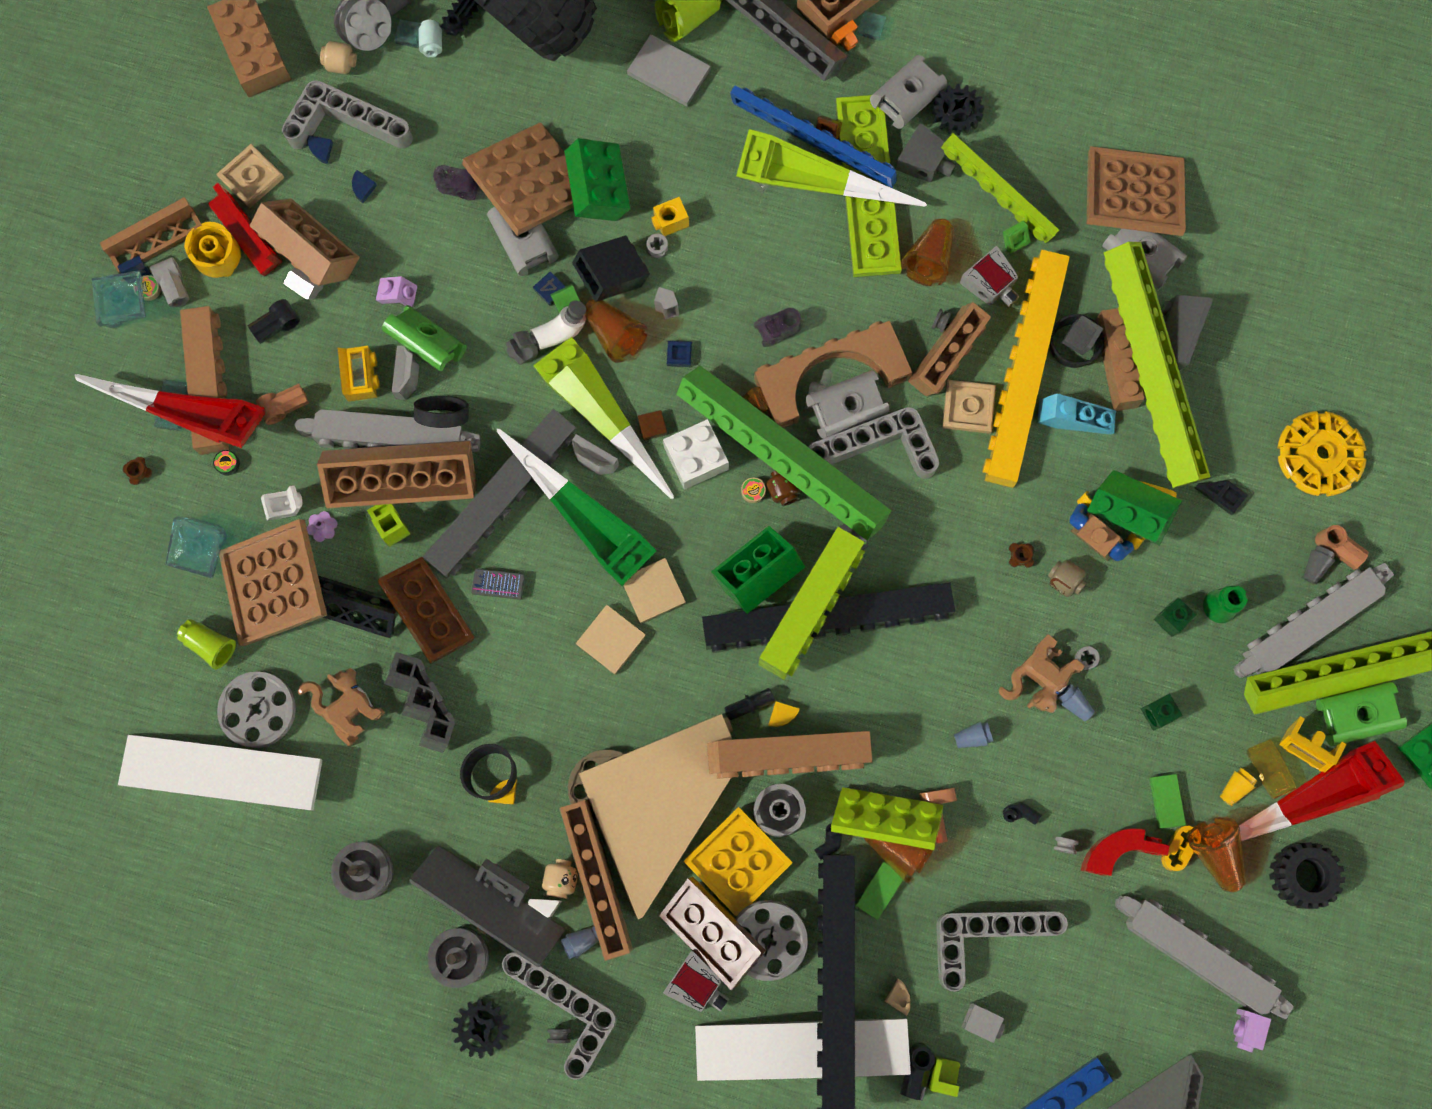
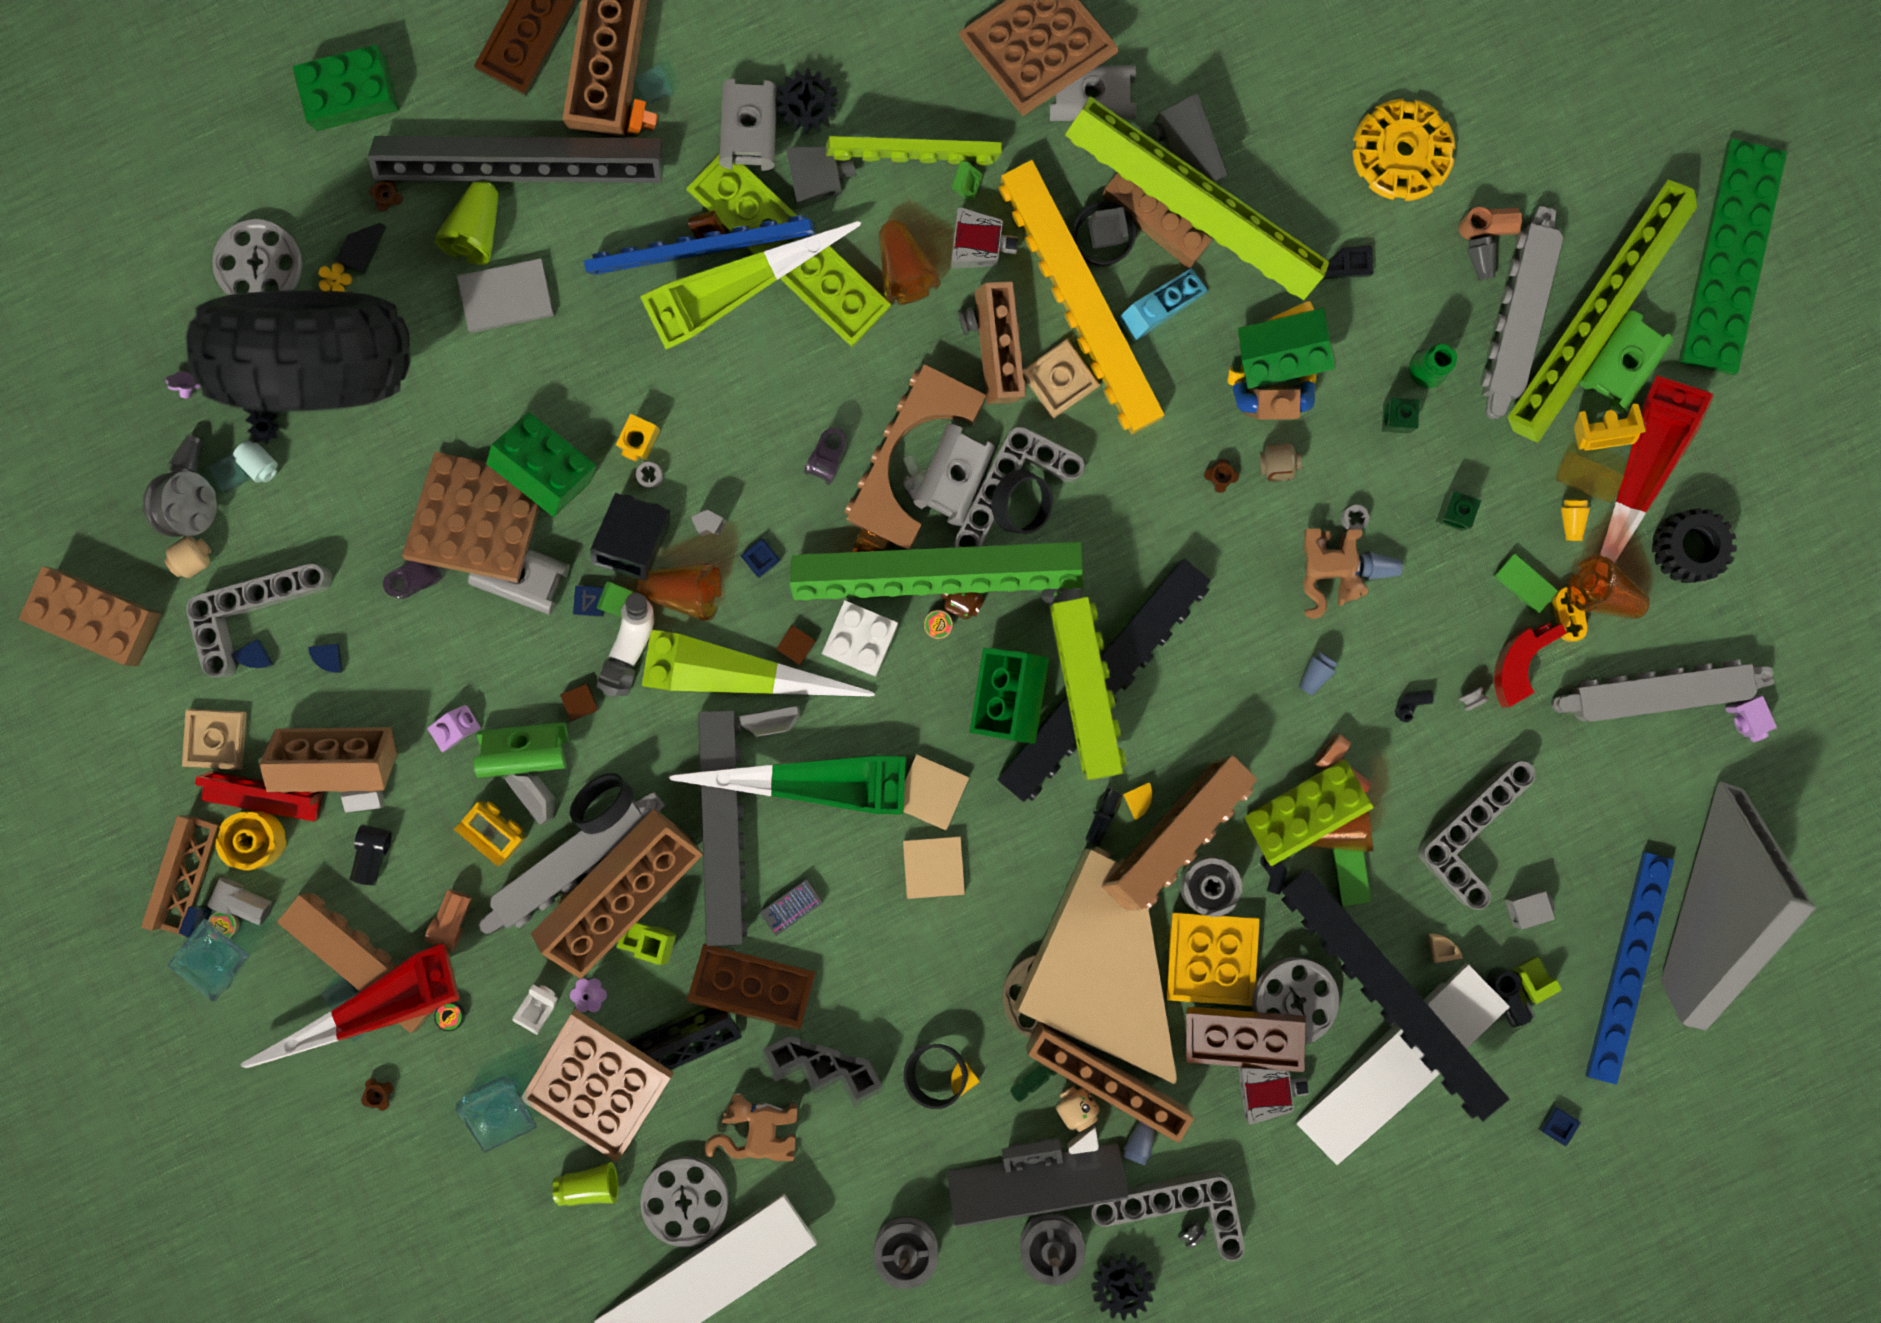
camera: 40 degrees left, 10 degrees up
(486, 343) = (579, 702): none -> reddish brown tile
(547, 836) = (1031, 1082): none -> clear green axle
(866, 439) = (1002, 495): none -> black tyre

